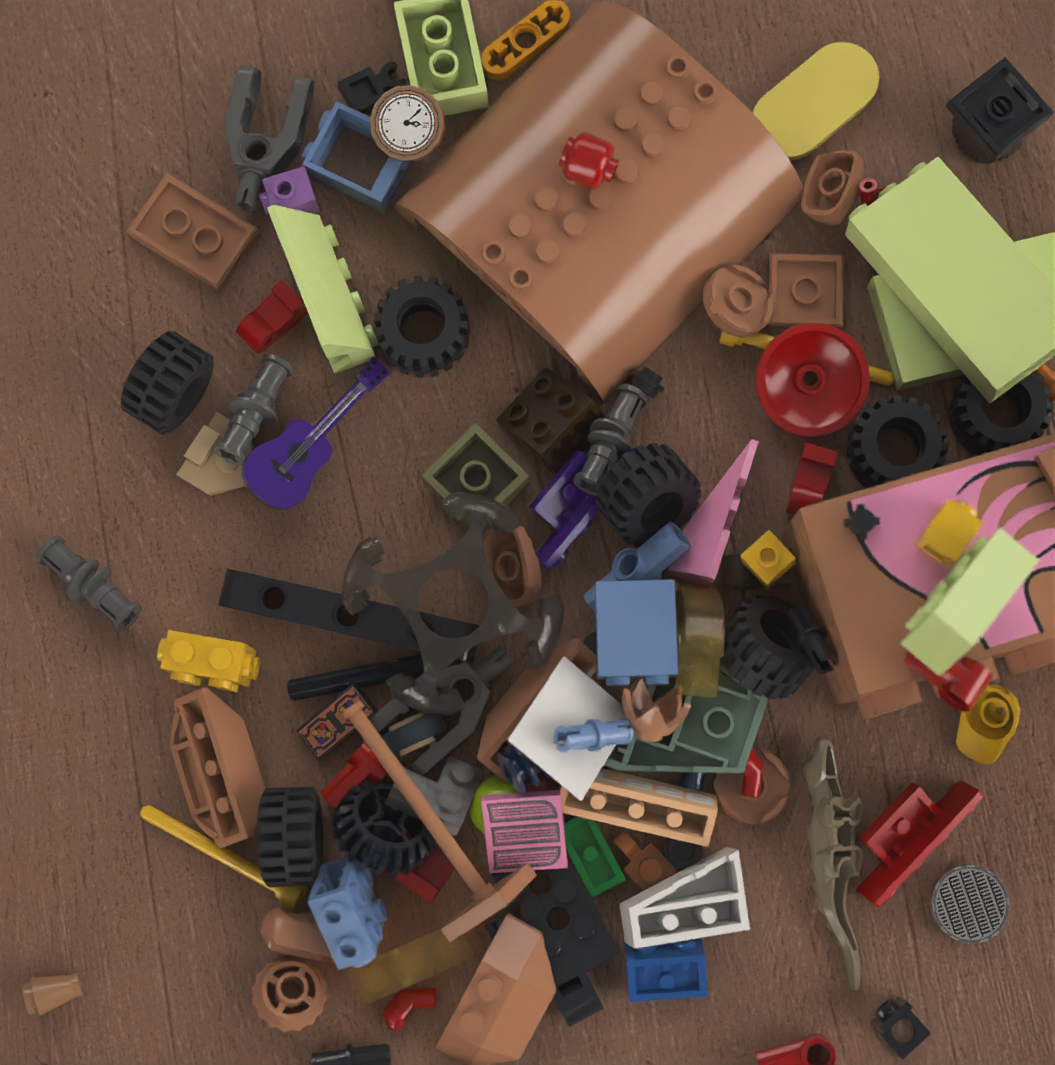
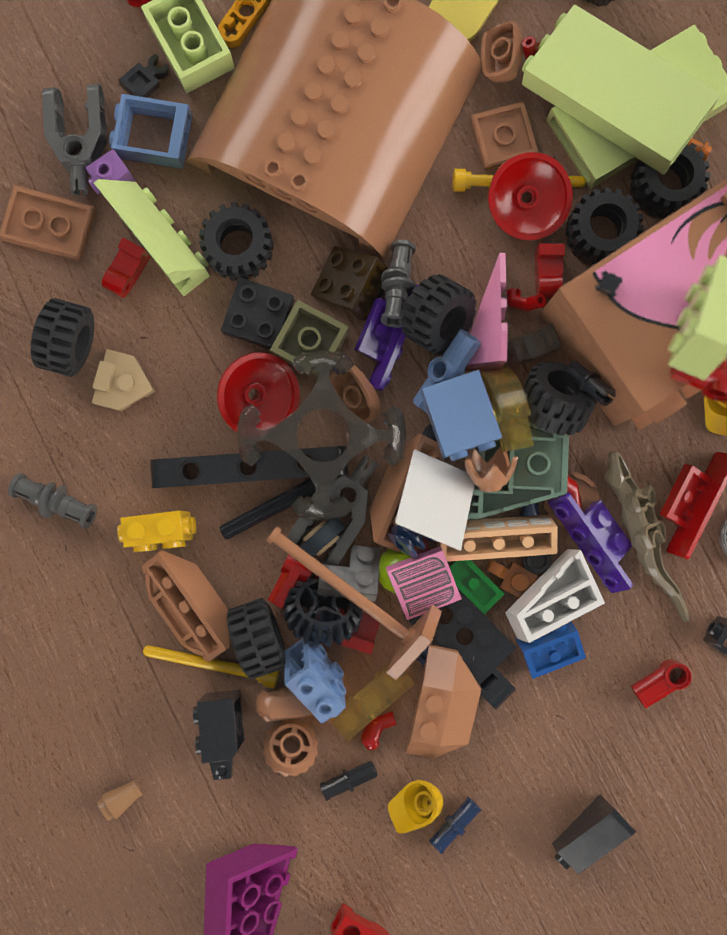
camera: 20 degrees left, 5 degrees up
(206, 942) = (219, 730): none -> black hinge
(251, 408) = (131, 338): dark grey piece -> none
(284, 468) = (168, 374): dark purple piece -> none
(328, 728) = (258, 551): tile -> none
(407, 123) = (179, 93): tile -> none
(413, 521) = (274, 386): none -> red dish
(420, 423) = (256, 313): none -> black brick
(588, 160) = (322, 77): red head -> none
(593, 735) = (454, 500): medium blue pin -> none
(647, 381) = (411, 233): black plate -> none
(737, 301) = (459, 155): nougat tile -> none
(768, 514) = (524, 303): none -> red arm
(768, 559) = (539, 335): yellow brick -> none
(768, 842) = (597, 538): none -> dark purple bracket
(949, 532) = (677, 272): yellow brick -> none

